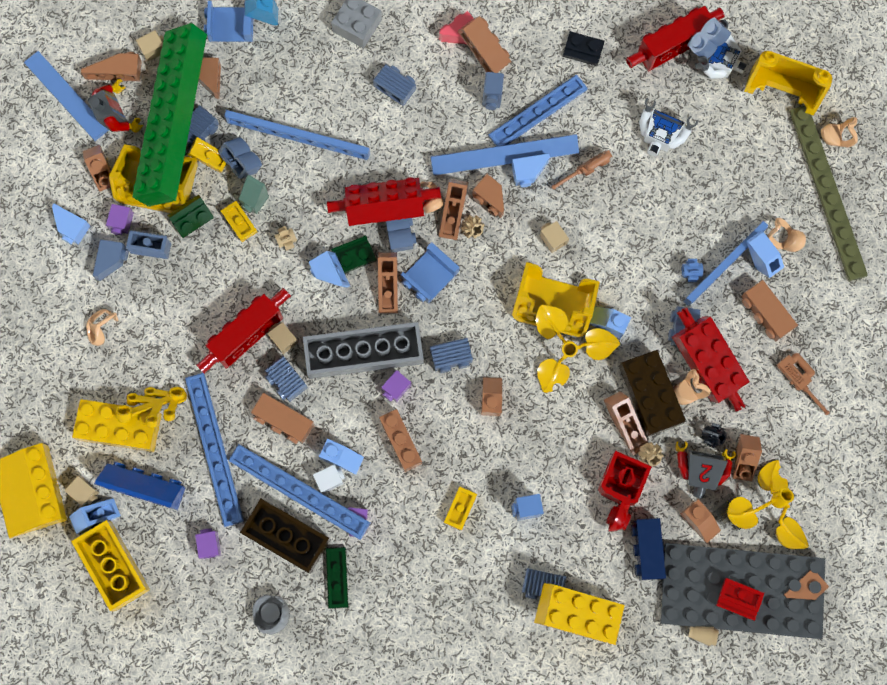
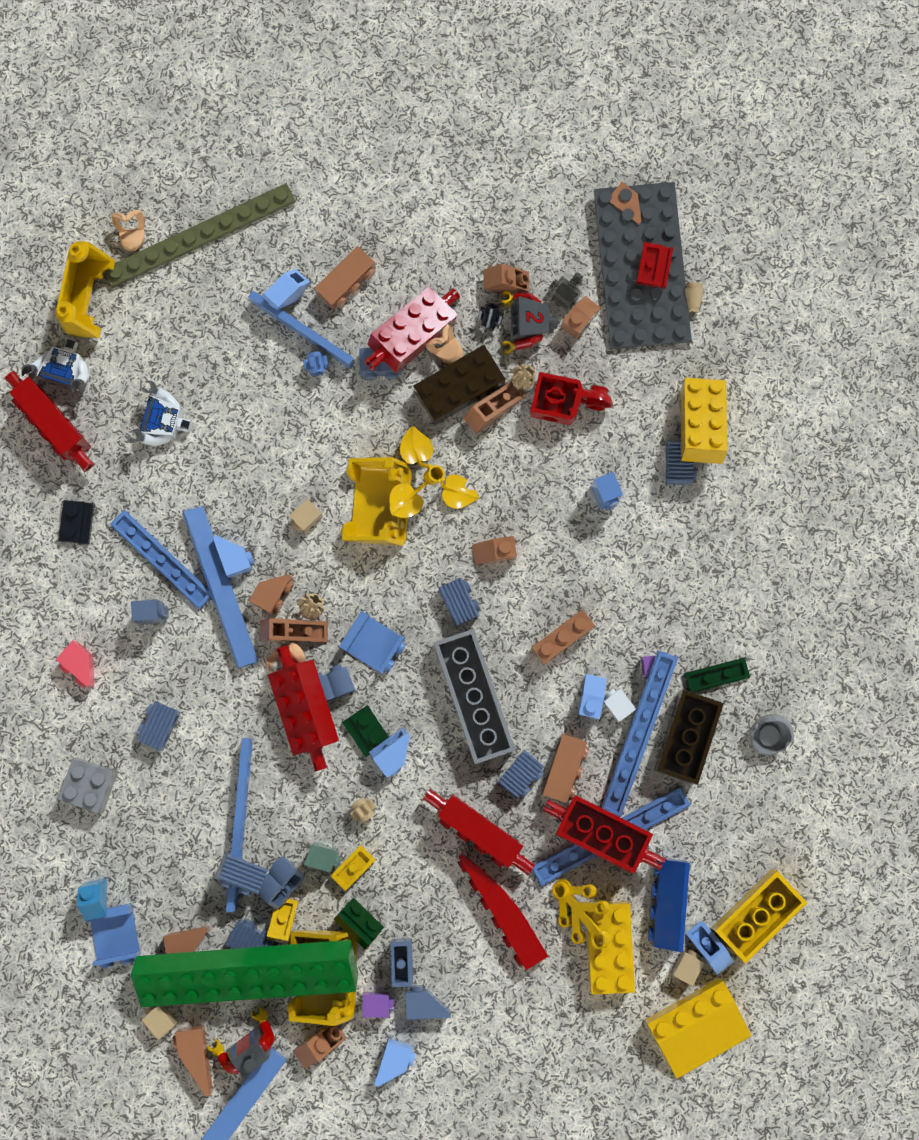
camera: 100 degrees left, 5 degrees up
(94, 332) = (511, 999): light nougat piece -> none
(168, 341) = (506, 915): none -> red slope
(208, 544) = (713, 817): medium lavender brick -> none
(214, 438) = (604, 834): none -> red brick
(253, 125) = (240, 874): none -> sand blue brick
(282, 337) = (475, 789): tan brick -> none
(387, 282) = (390, 686): nougat slope -> none
(395, 387) = (506, 654): medium lavender brick -> none
(460, 508) = (619, 561): yellow plate -> none
(484, 45) = (95, 631): nougat brick -> none
(588, 167) = (217, 492): nougat piece -> none
(610, 320) = (389, 438): light blue slope -> none
(648, 549) = (621, 363): dark blue brick -> none
(711, 36) = (53, 384): sand blue brick -> none
(743, 515) = (574, 227): yellow plant -> none
(795, 240) = (261, 262): light nougat piece -> none
(800, 381) = (413, 239): nougat piece -> none

